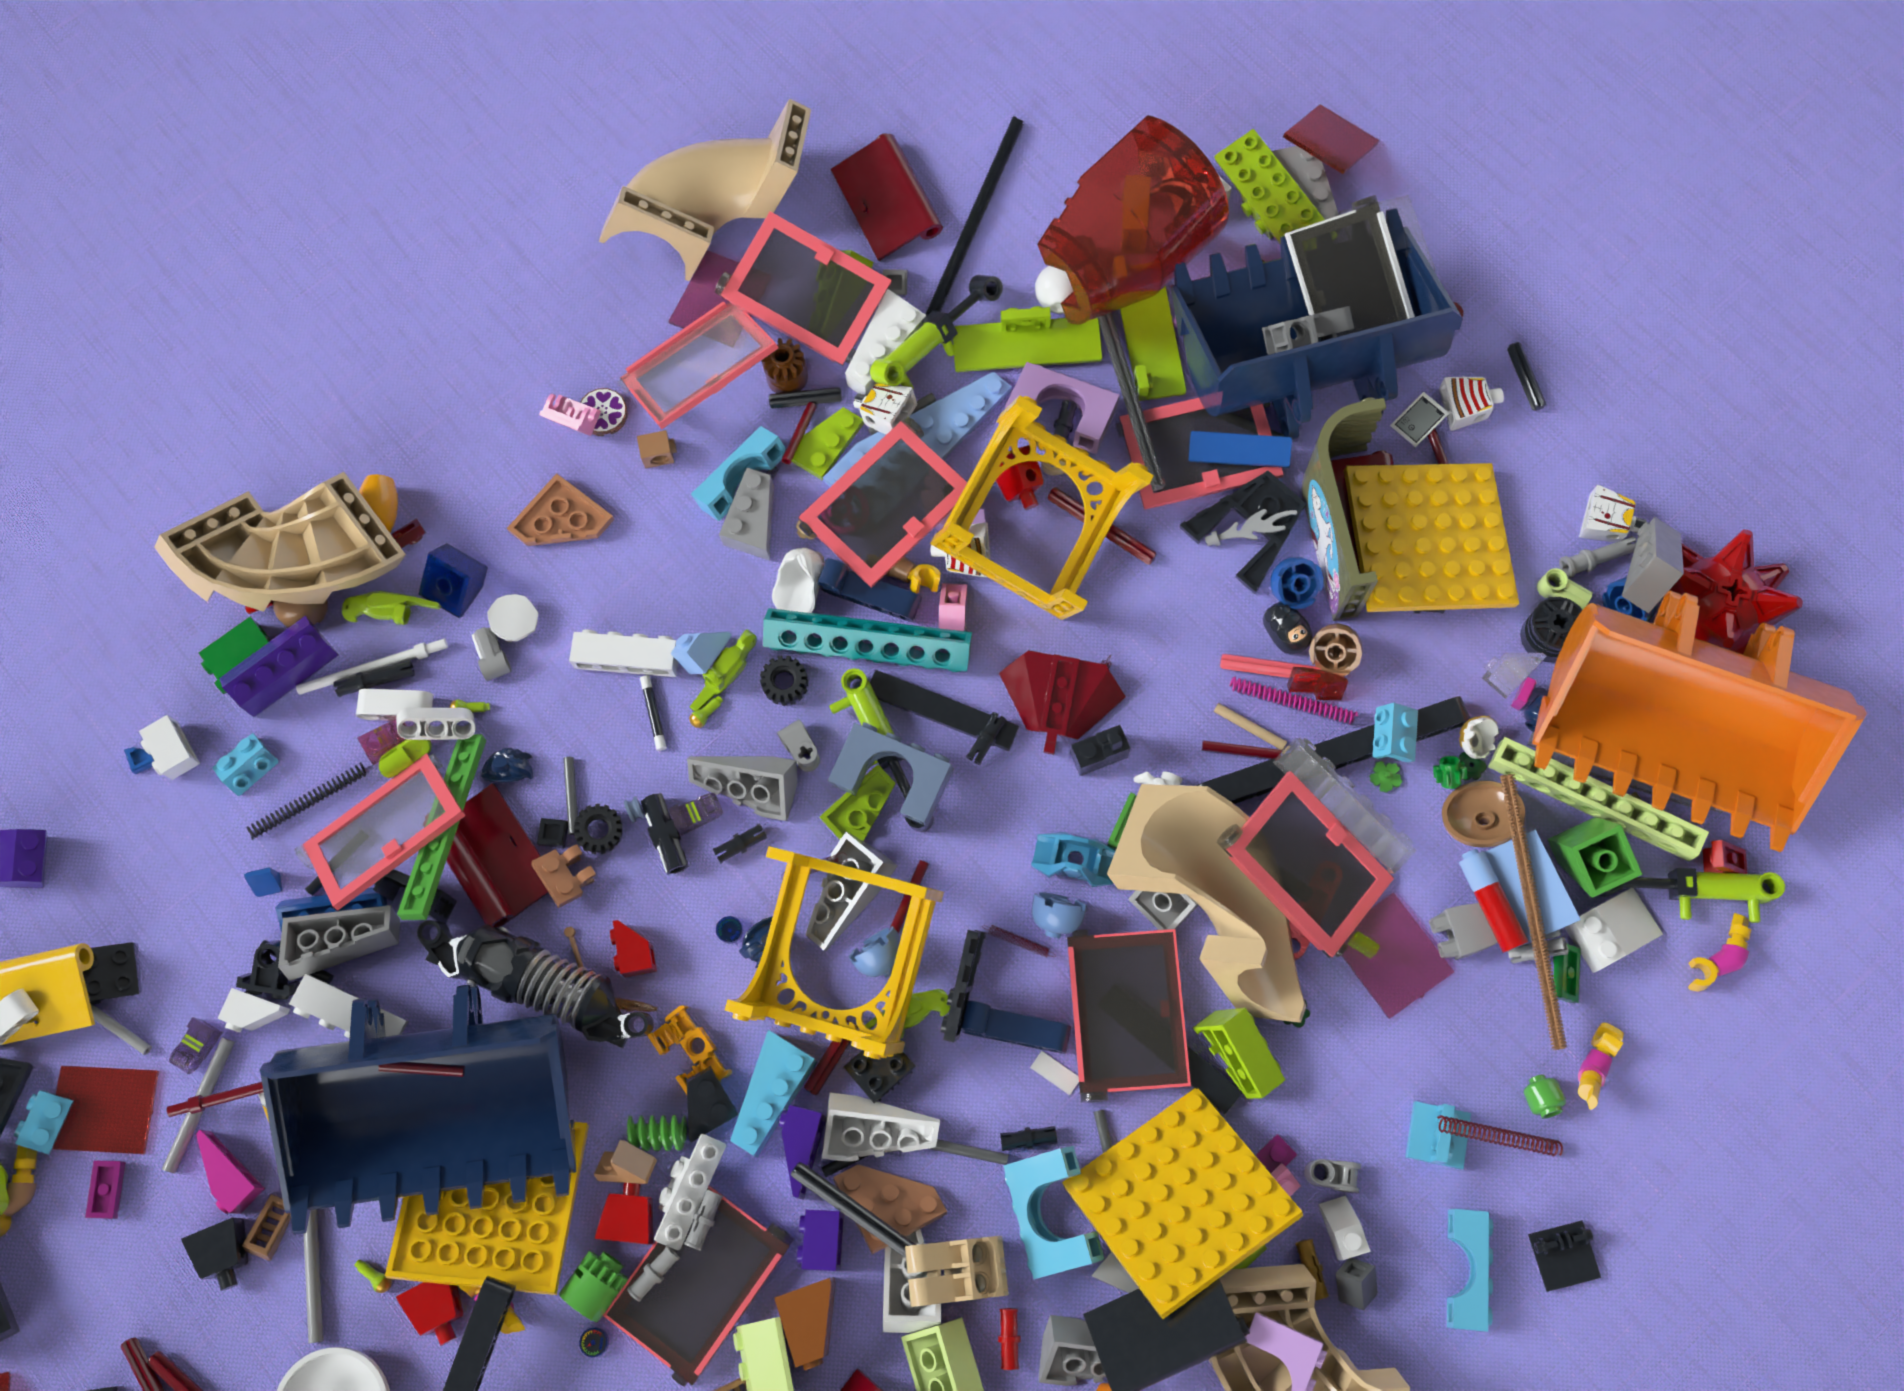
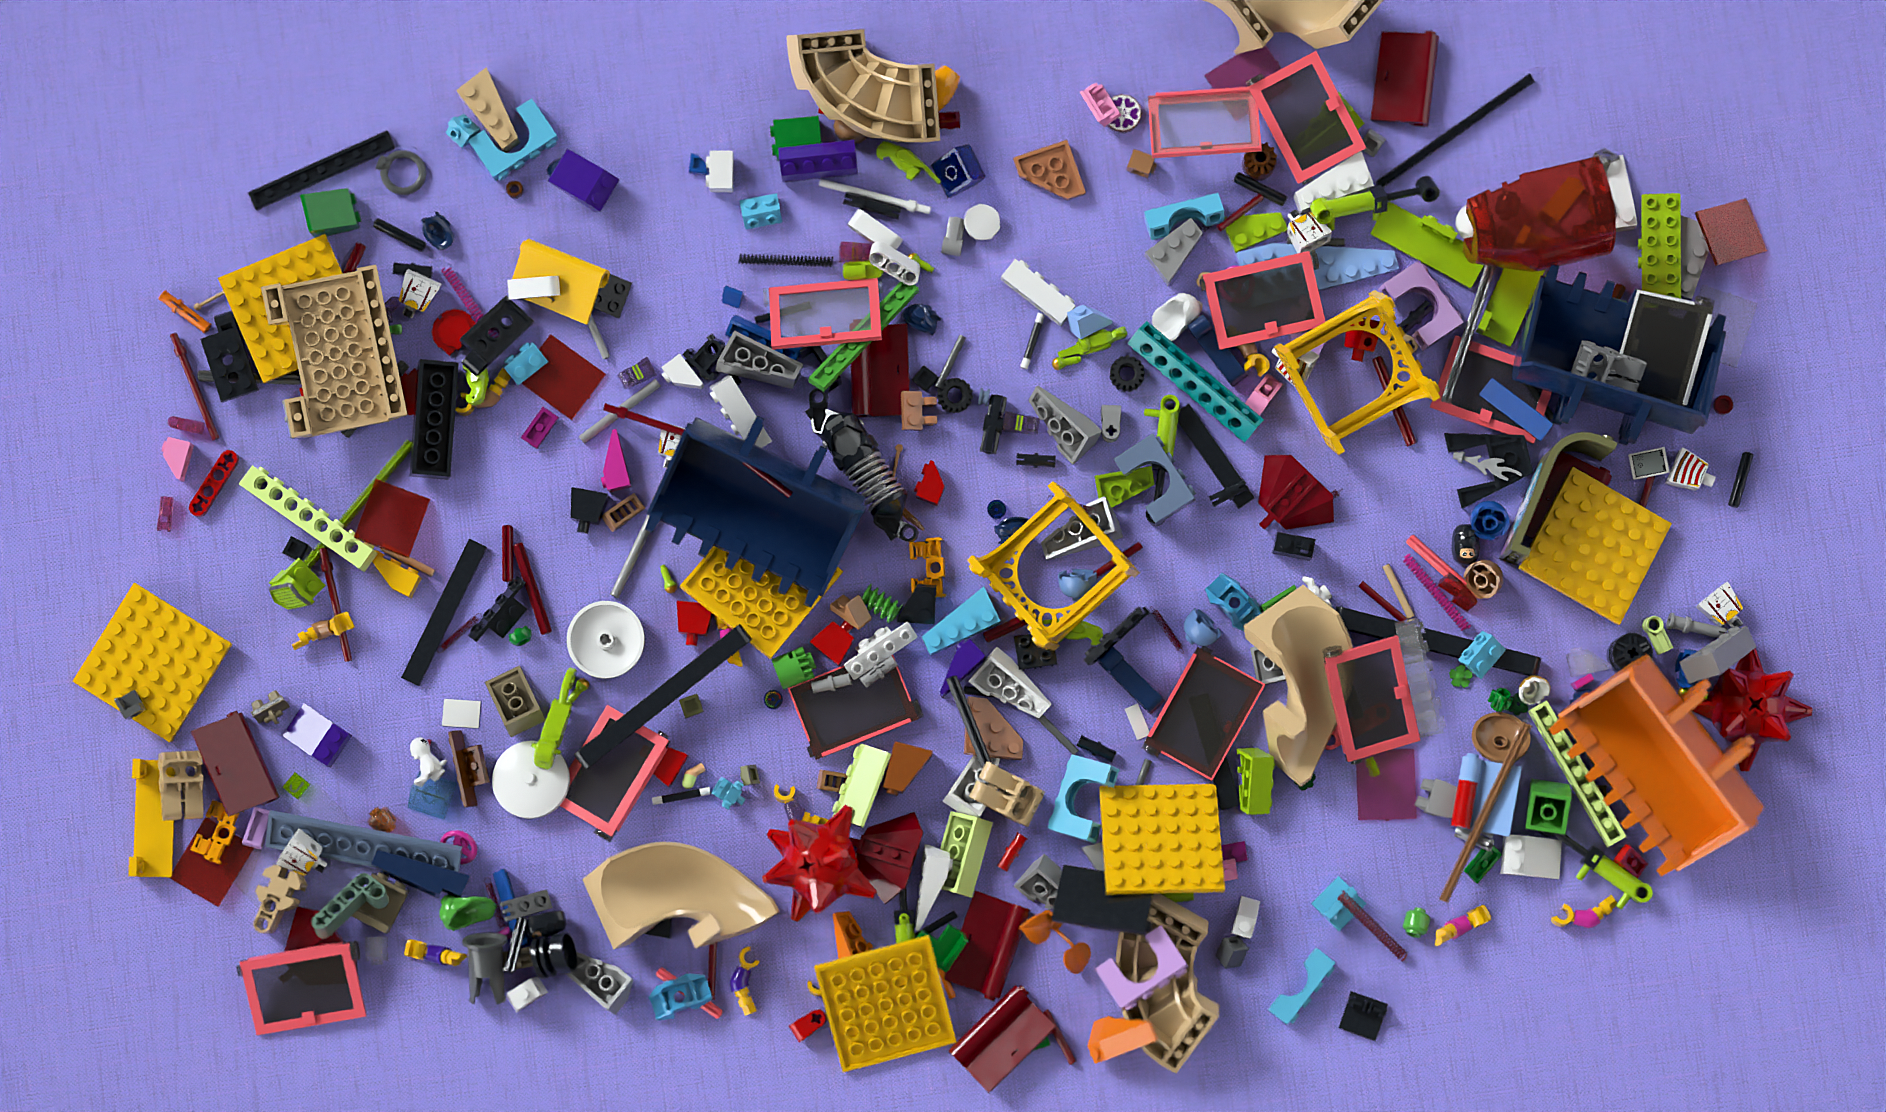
camera: 30 degrees right, 10 degrees up
(821, 1240) = (940, 727): dark purple brick -> none
(1309, 1259) = (1214, 920): pearl gold pin -> none
(1338, 1175) = (1262, 885): light grey piece -> none

